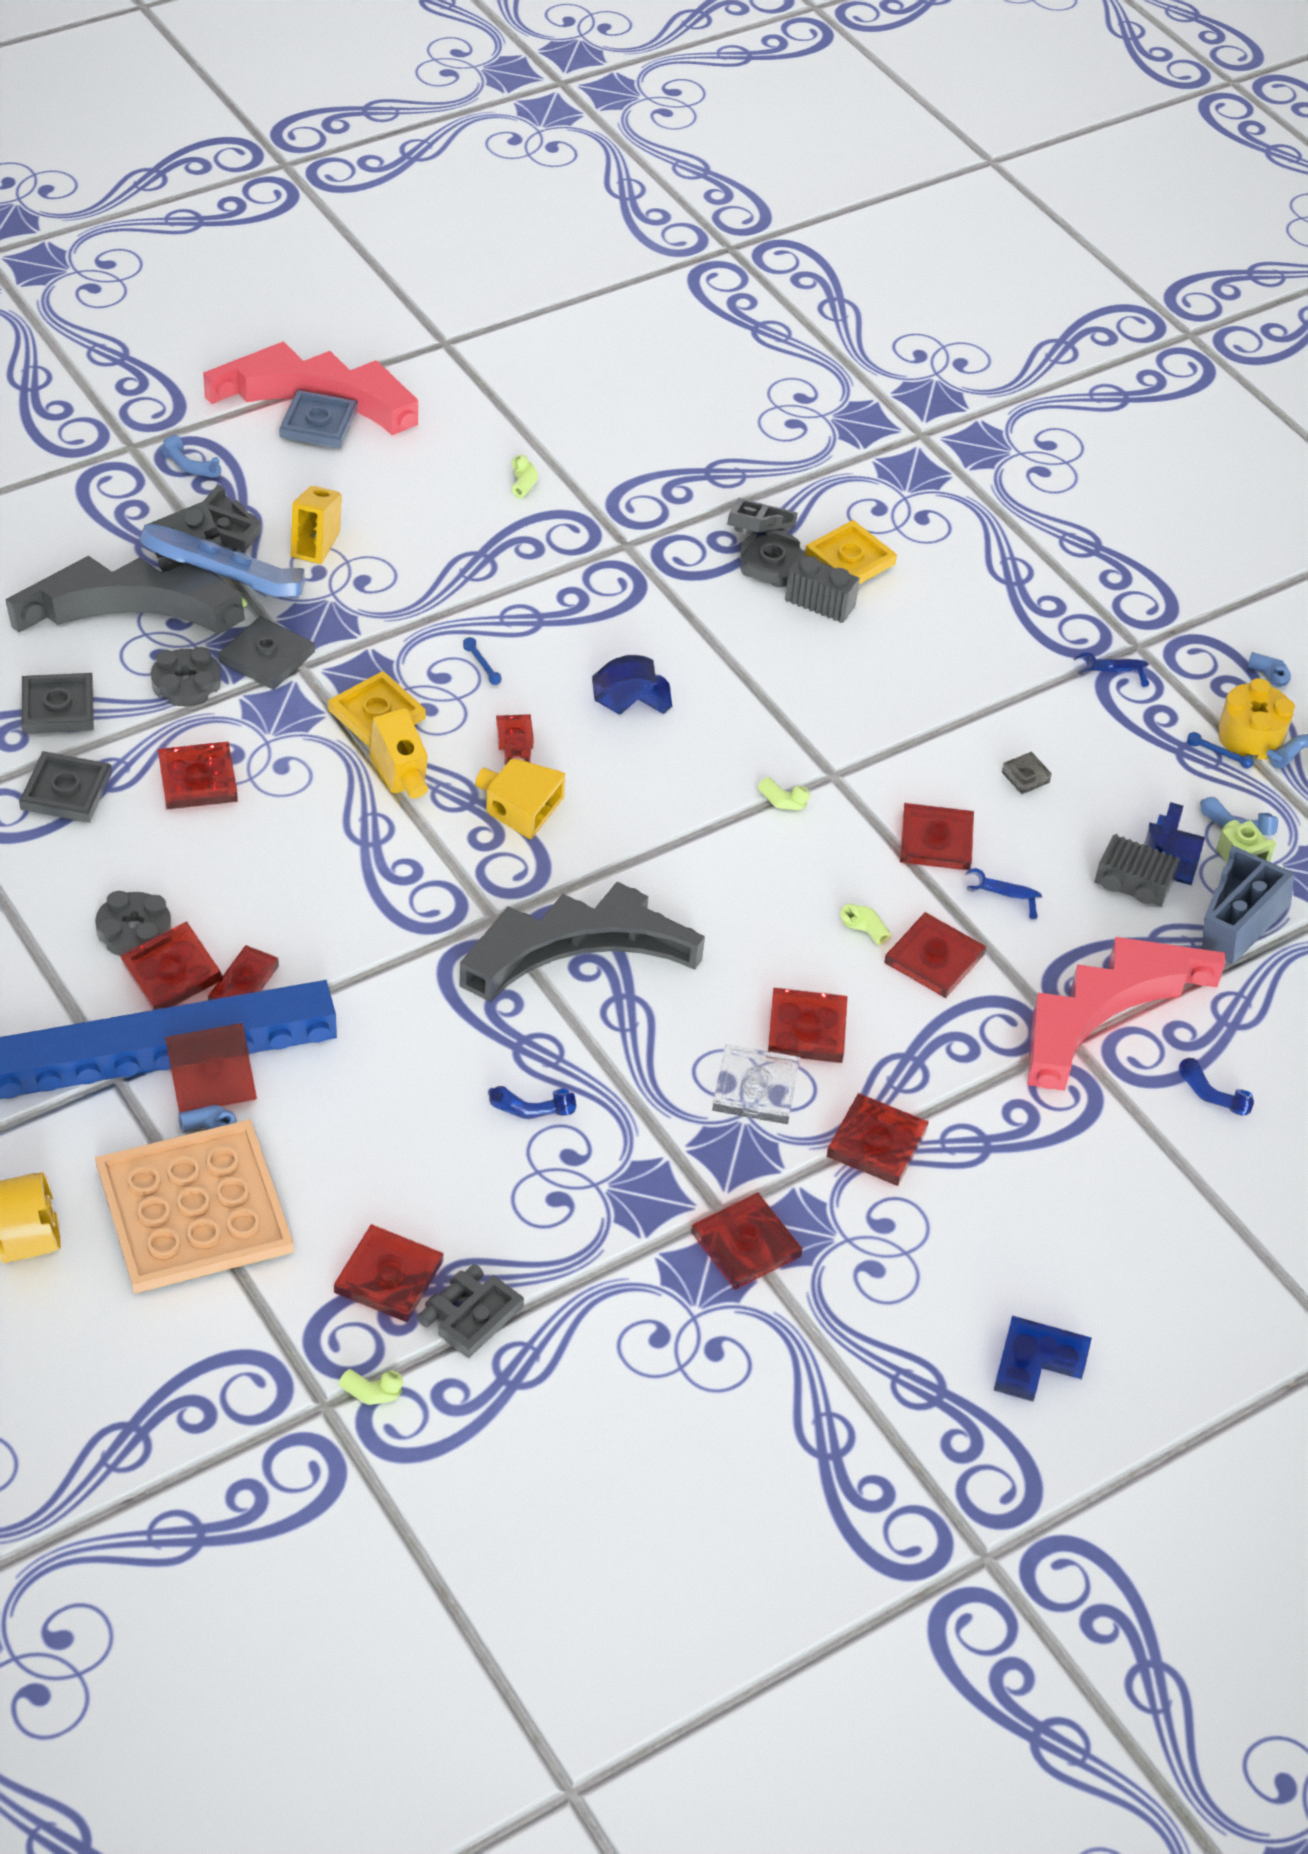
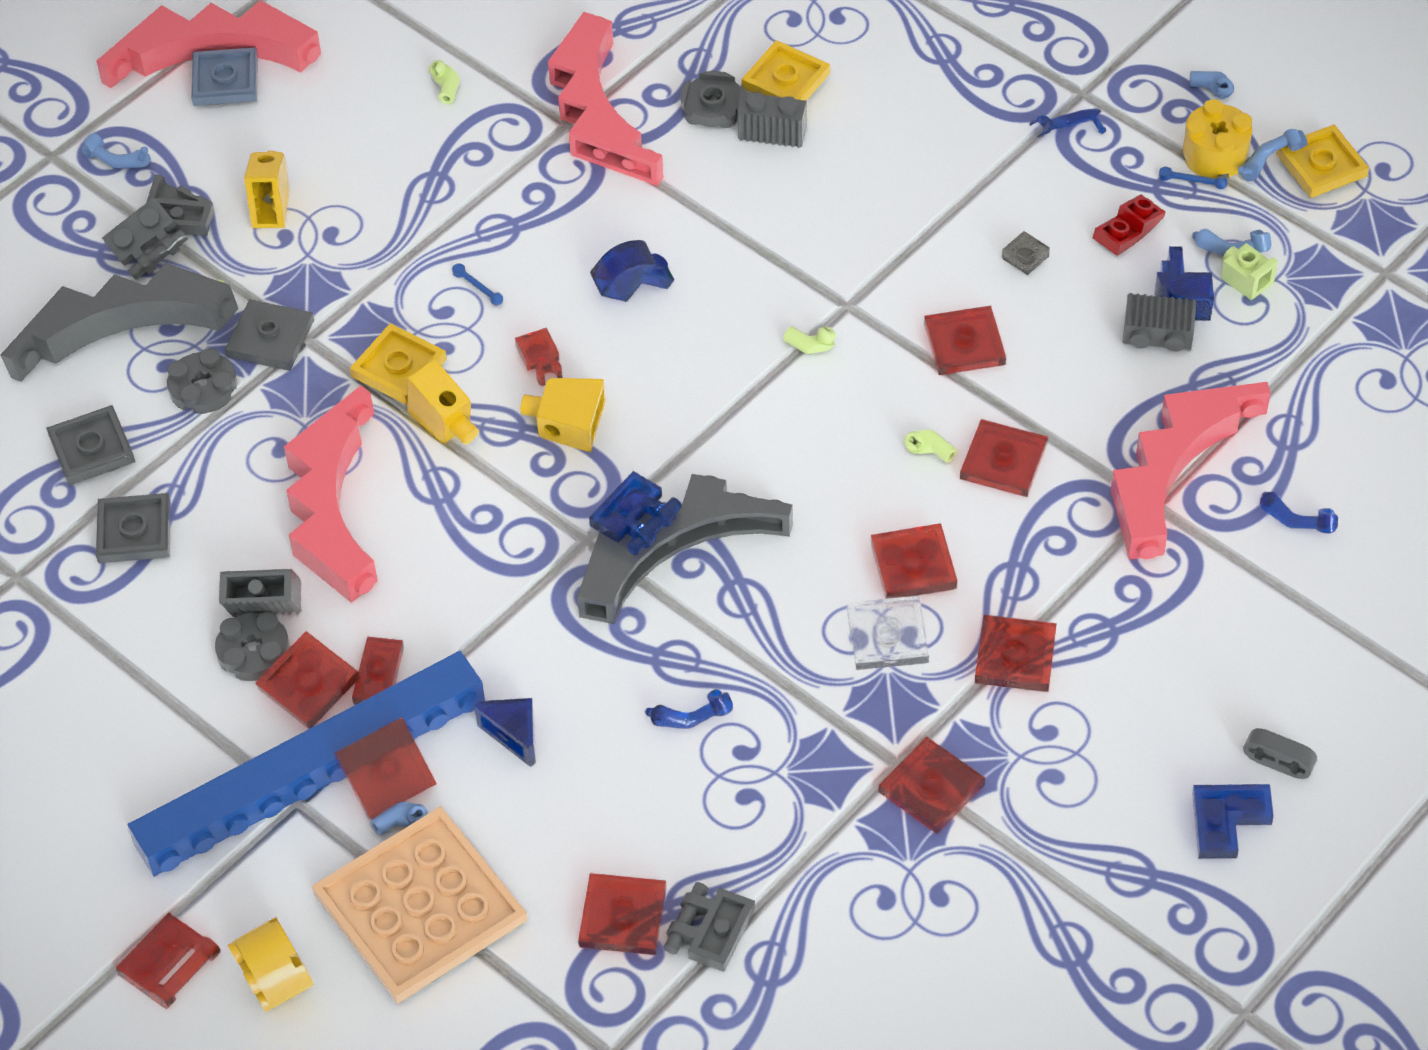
camera: 10 degrees left, 5 degrees up
(158, 873) = (260, 591): none -> dark grey brick
(197, 775) = (252, 479): clear red plate -> none
(223, 561) = (197, 255): medium blue piece -> none
(266, 776) = (321, 460): none -> coral arch
(351, 1064) = (510, 724): none -> clear blue slope
(375, 1391) = (651, 1029): yellowish green arm -> none
(540, 891) = (625, 508): none -> clear blue plate
(650, 554) = (599, 130): none -> coral arch
(757, 517) = (687, 62): dark grey wing -> none
(1006, 889) = (1047, 374): clear blue piece -> none
(1114, 1311) = (1280, 753): none -> dark grey beam
(1144, 774) = (1130, 225): none -> red slope
(1245, 903) = (1268, 327): sand blue wedge -> none

